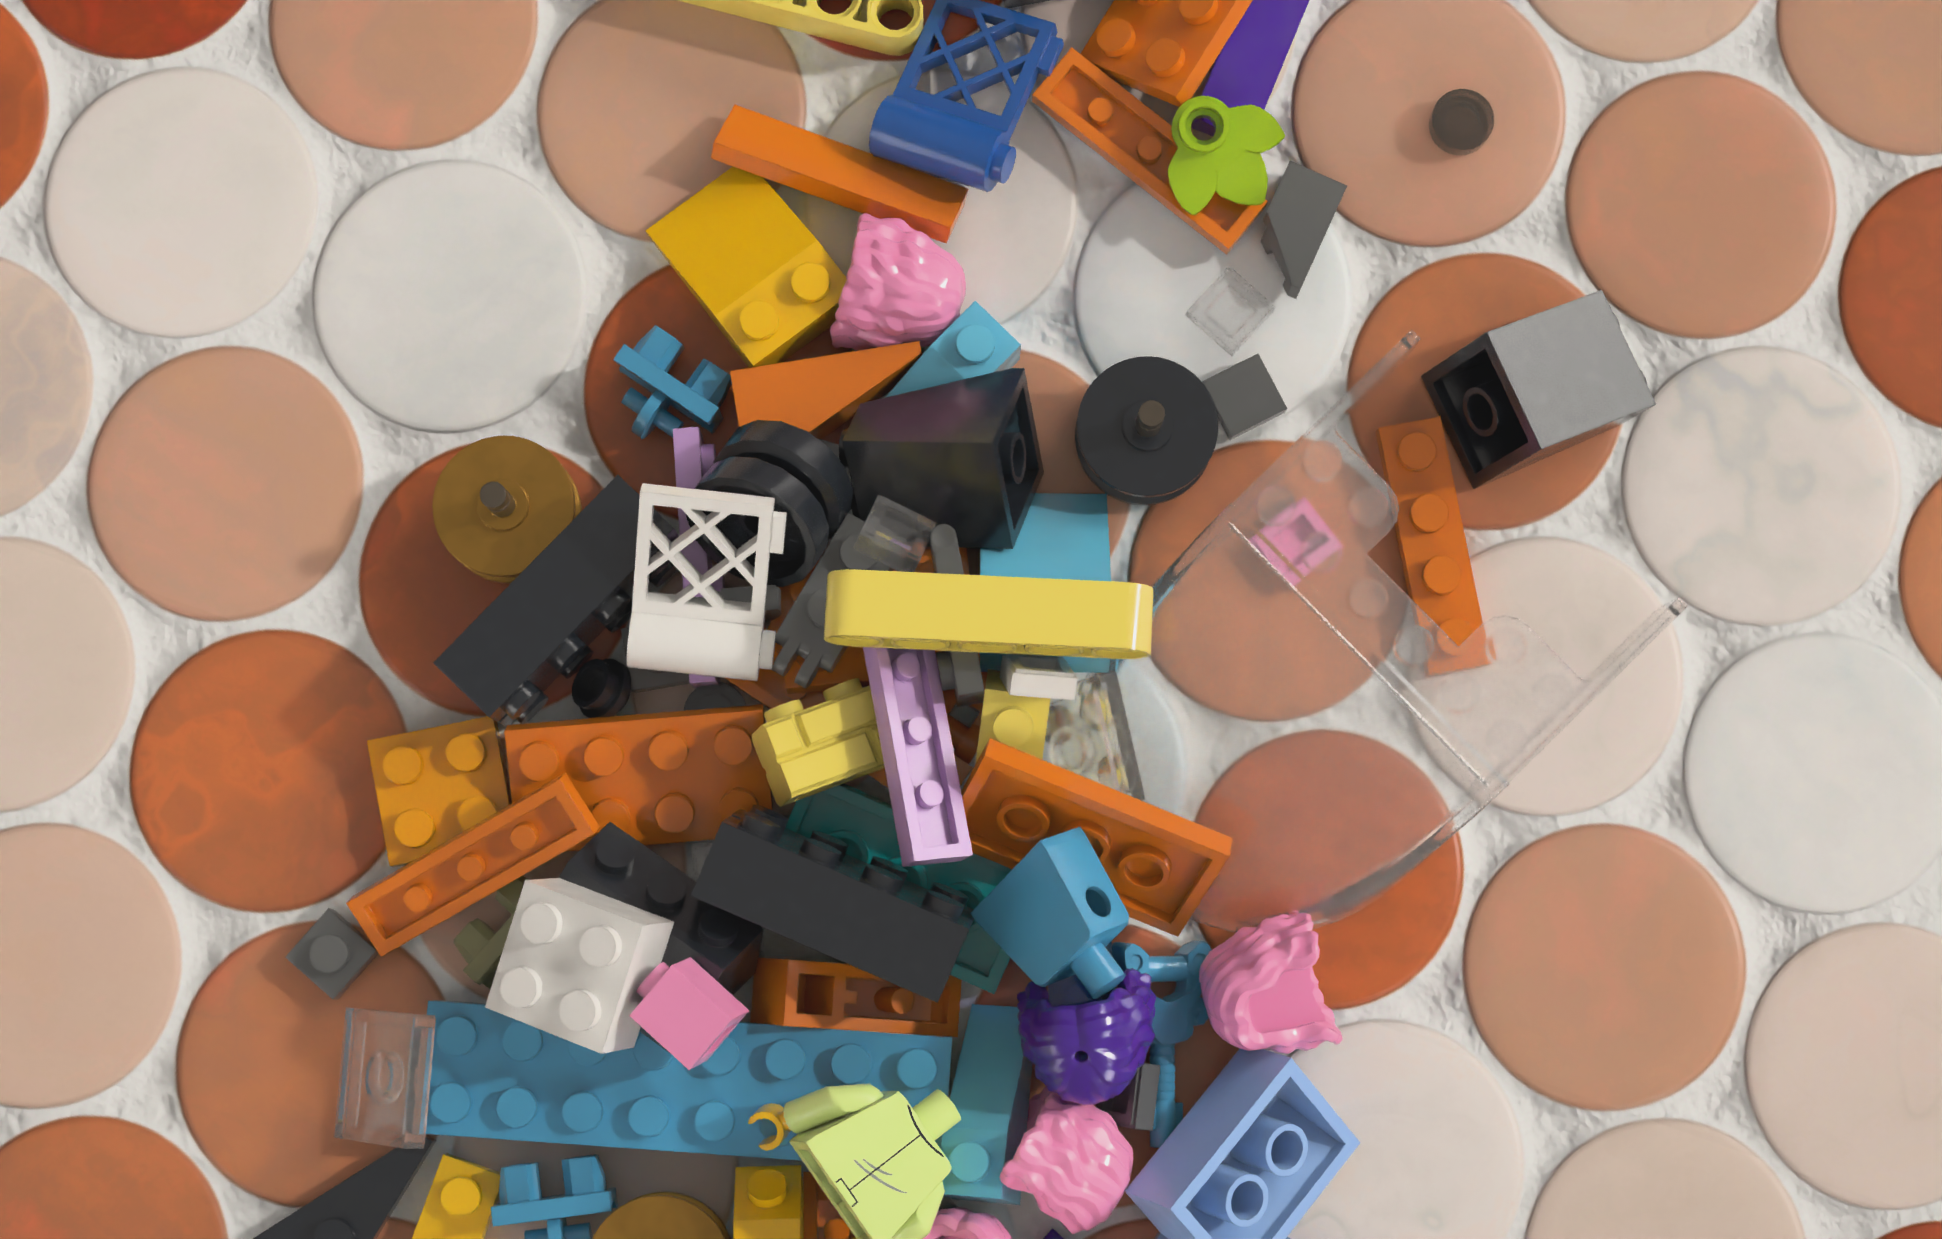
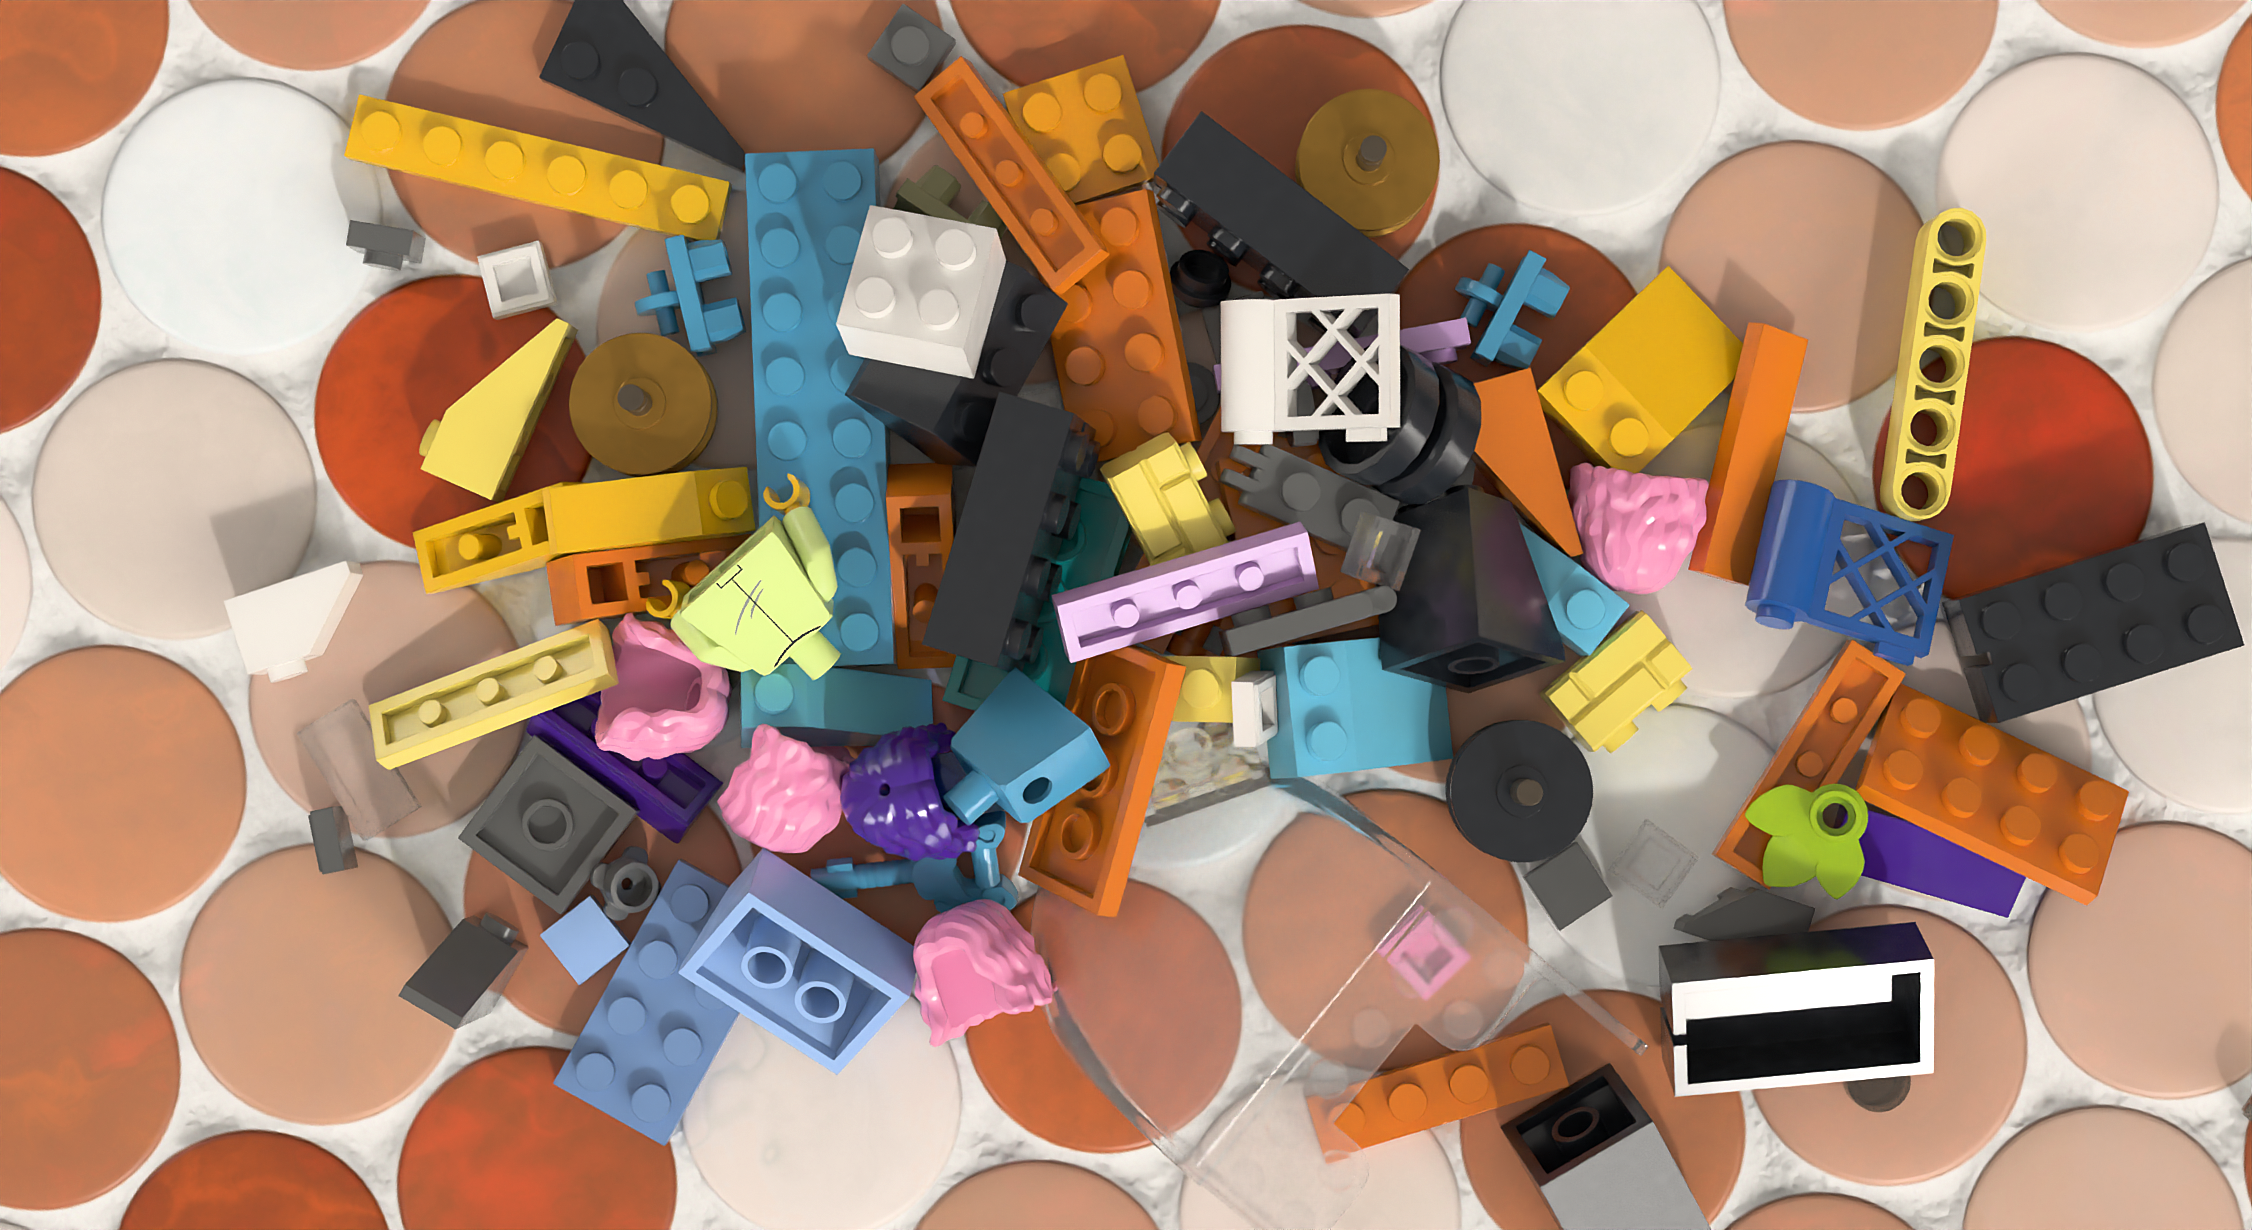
camera: 85 degrees right, 5 degrees up
(385, 1077) = (796, 116): clear tile -> none
(687, 1011) = (887, 401): bright pink brick -> none
(988, 614) = (1308, 652): light yellow beam -> none
(1056, 332) = (1617, 683): none -> light yellow brick
(1137, 1102) = (851, 852): dark grey tile -> none
(1388, 186) = (1796, 1009): none -> black piece

